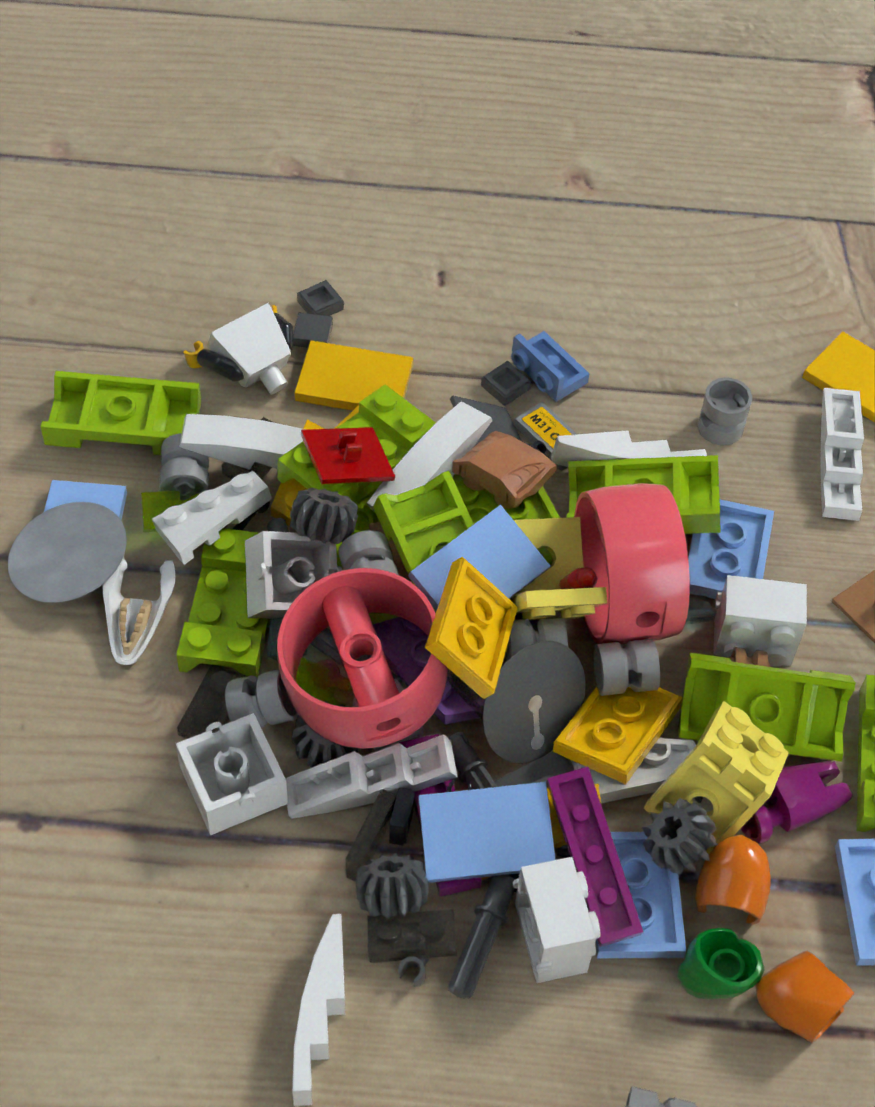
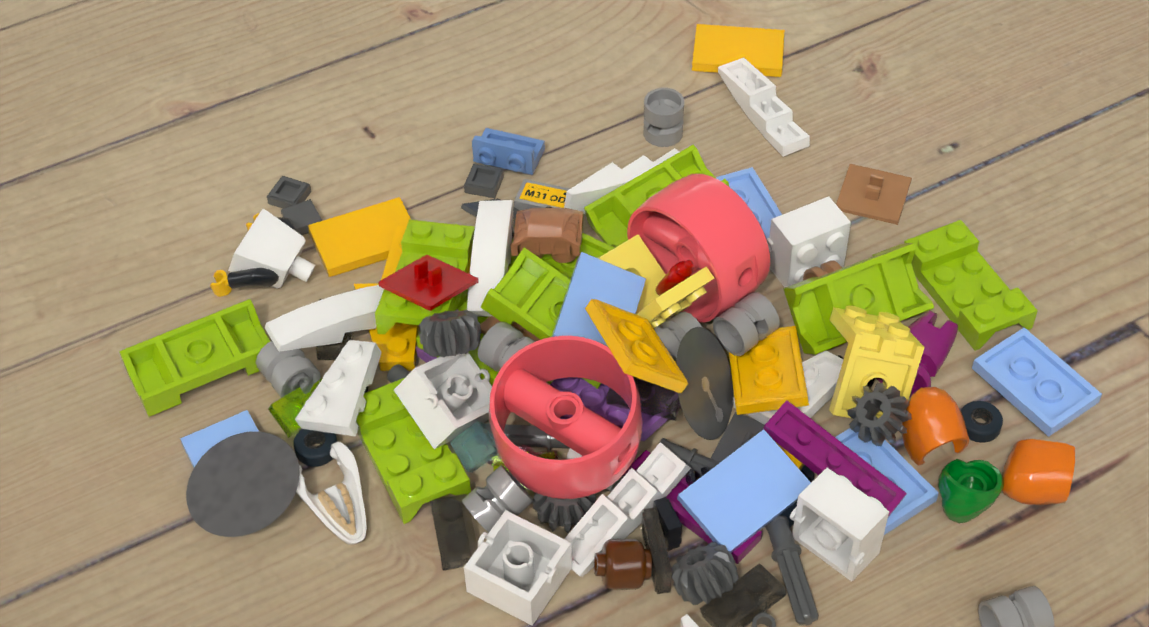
camera: 30 degrees left, 5 degrees down
(145, 550) = (311, 455): none -> black wheel
(328, 829) = (623, 564): none -> reddish brown head
(792, 919) = (982, 431): none -> black wheel

